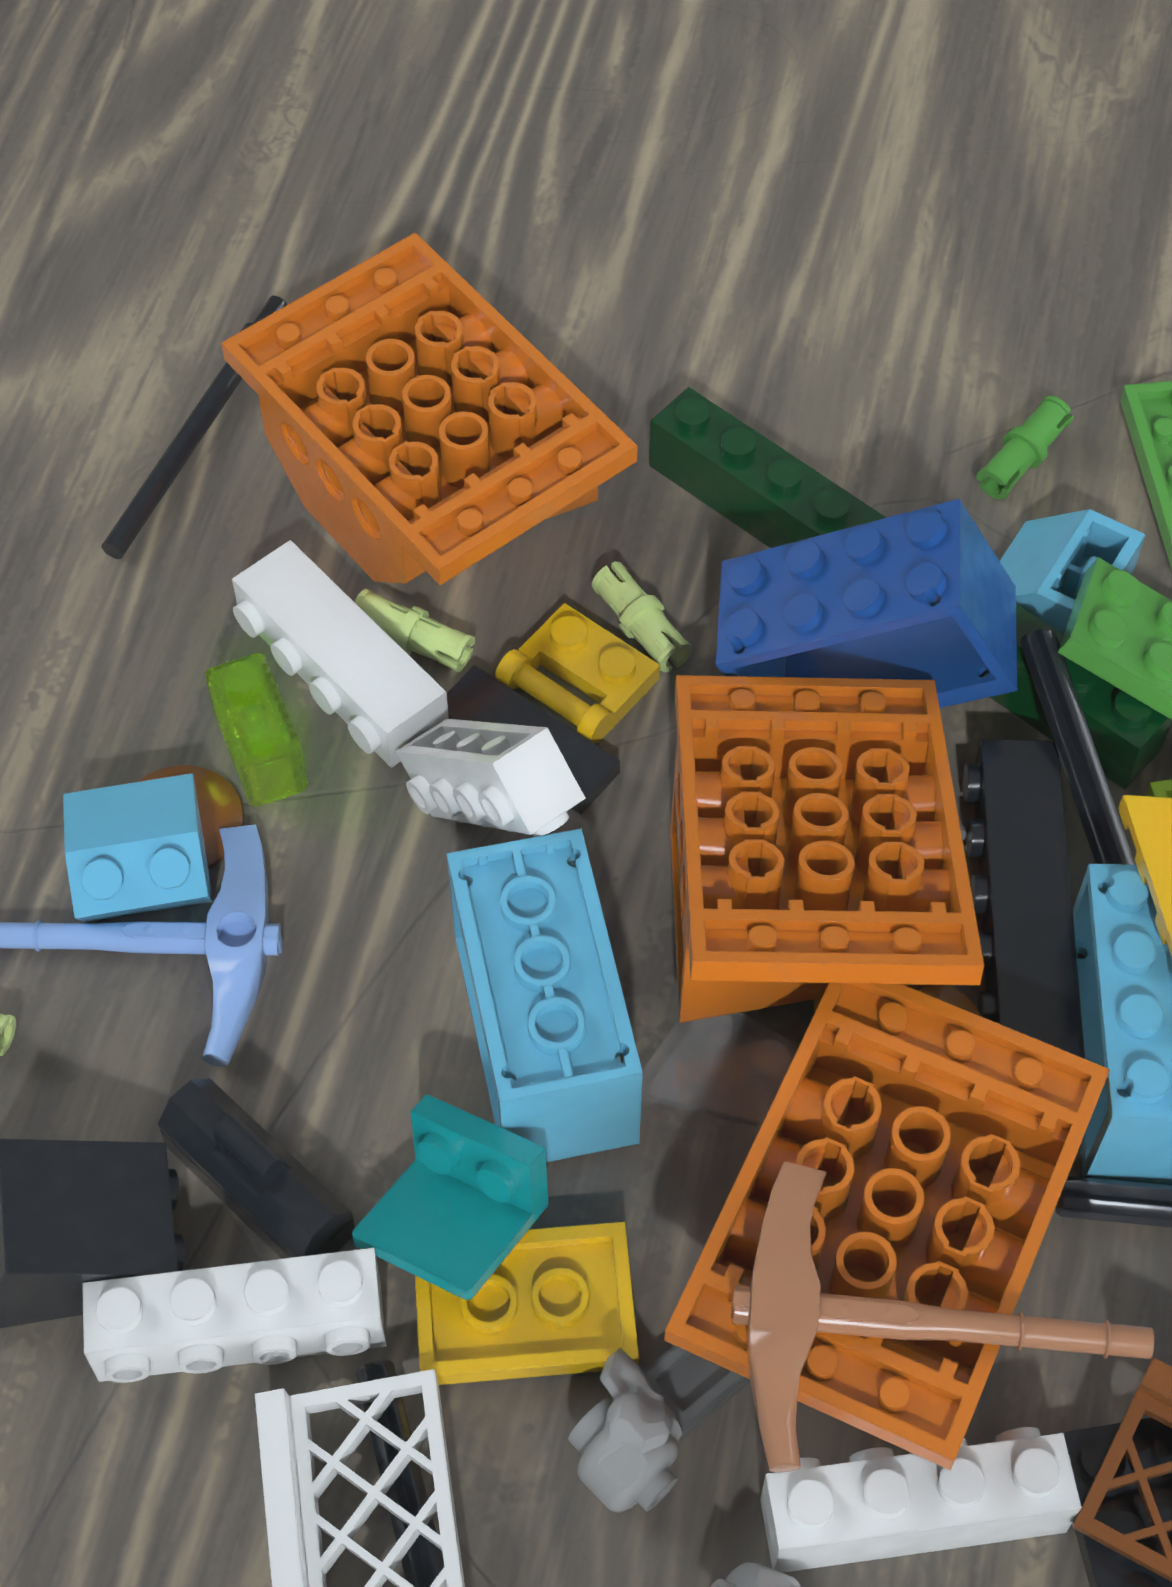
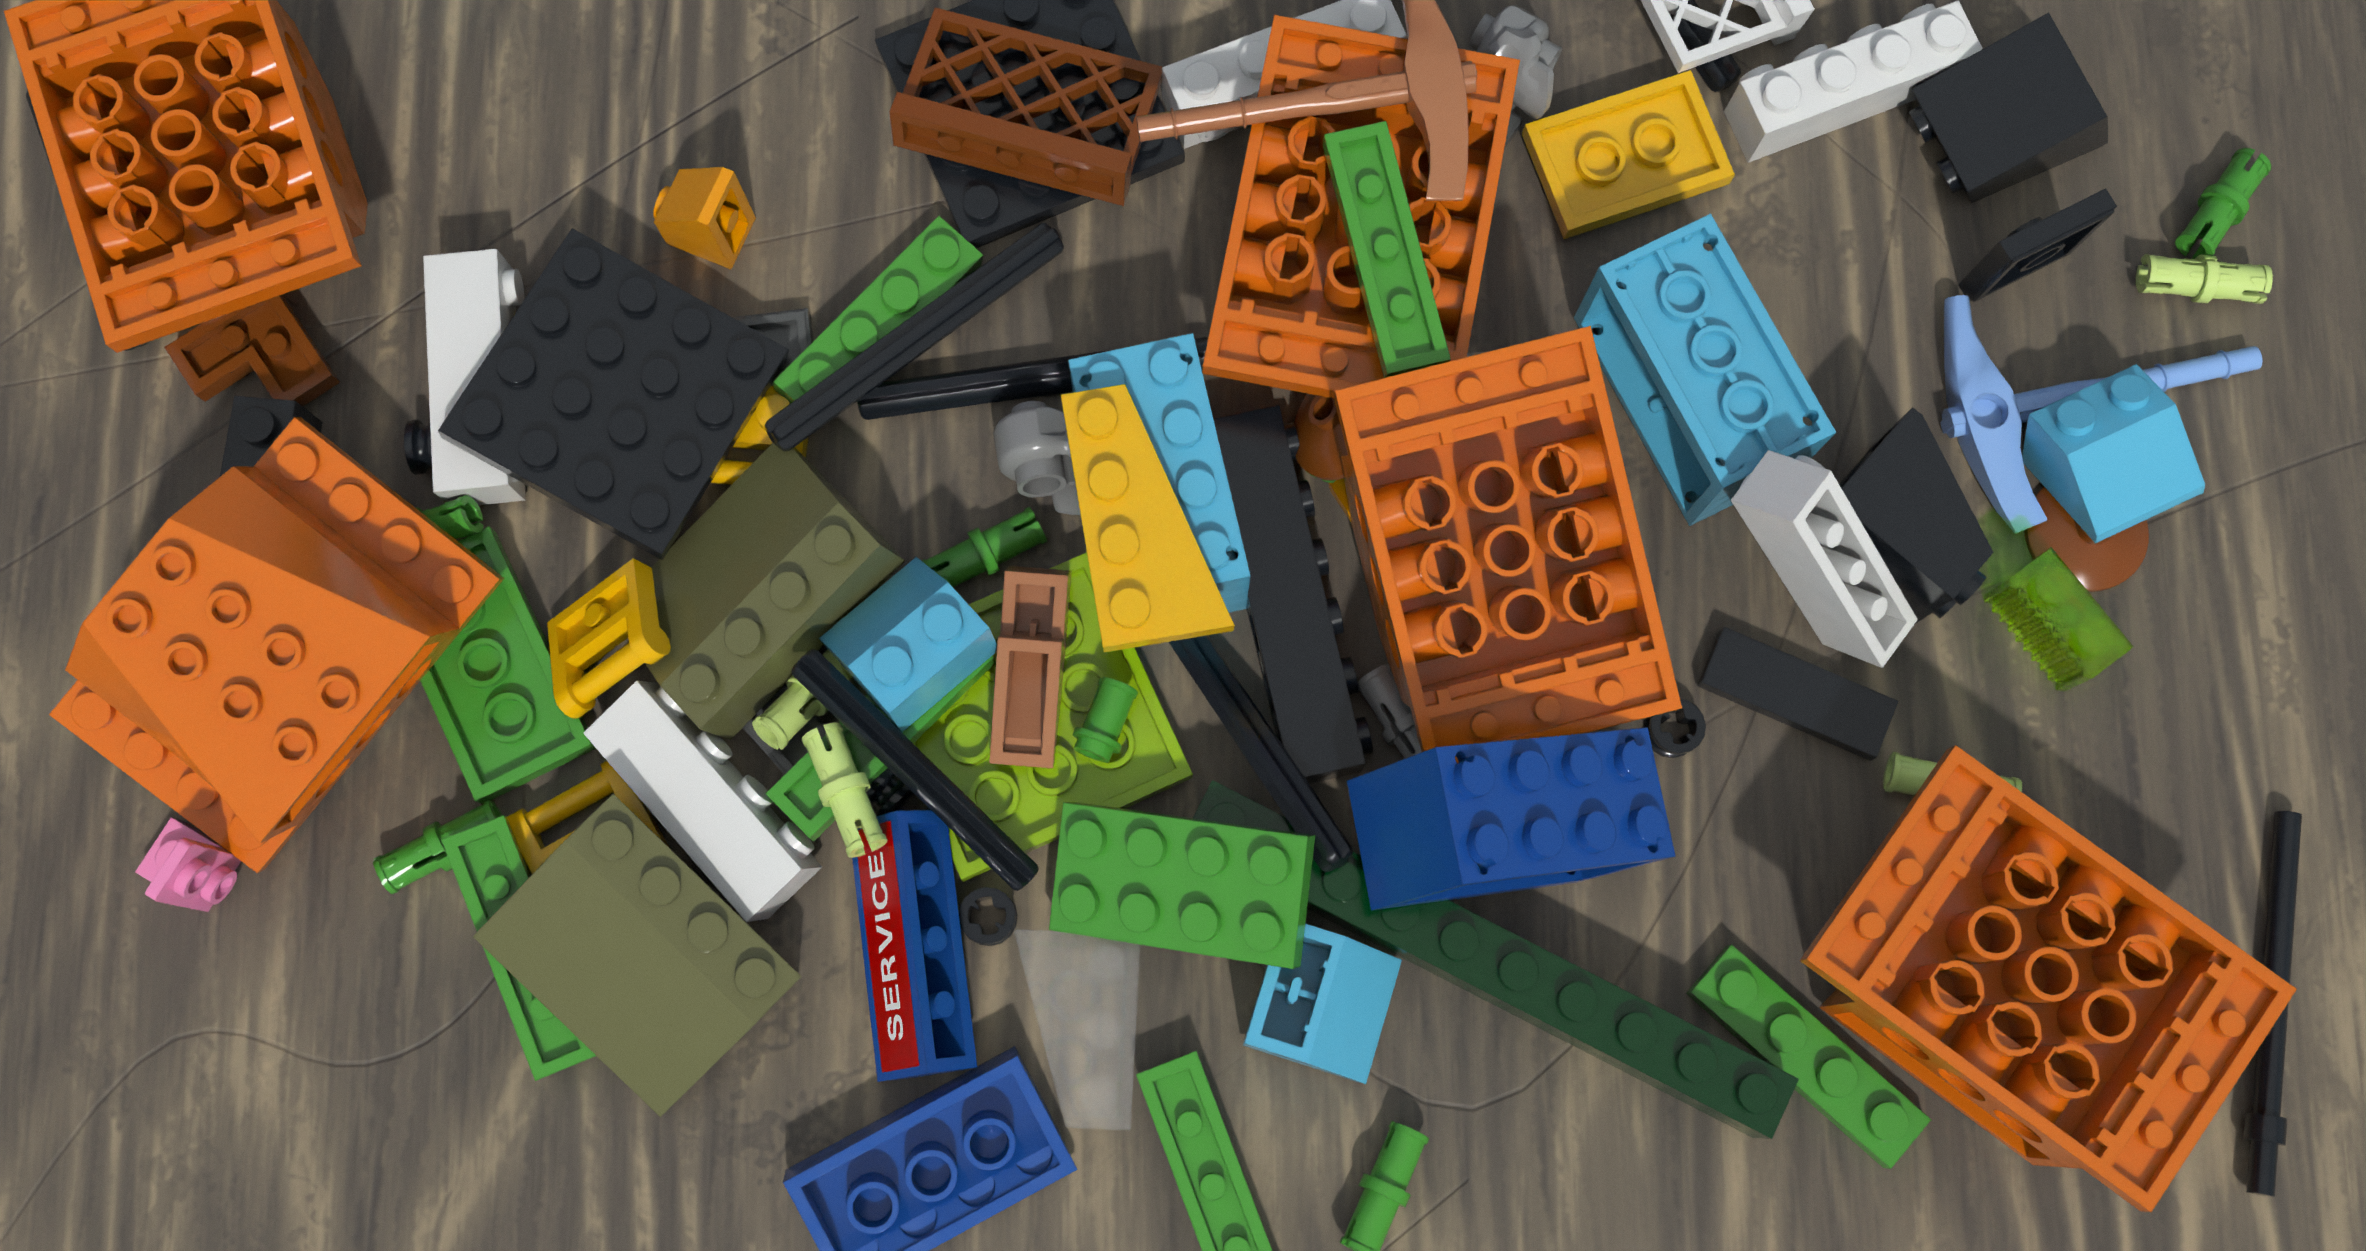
camera: 165 degrees right, 20 degrees up
(118, 1060) = (2037, 245): none -> black plate
(253, 1173) = (1882, 202): black piece -> none
(338, 652) = (2016, 723): white brick -> none
(385, 830) = (1918, 518): none -> black slope
(458, 1201) = (1714, 172): teal bracket -> none
(587, 660) = (1763, 799): yellow plate -> none
(641, 616) = (1731, 862): yellowish green pin -> none
(644, 721) = (1663, 743): none -> black bush
(651, 501) = (1796, 1042): none -> bright green plate
(887, 1129) = (1385, 249): none -> bright green plate

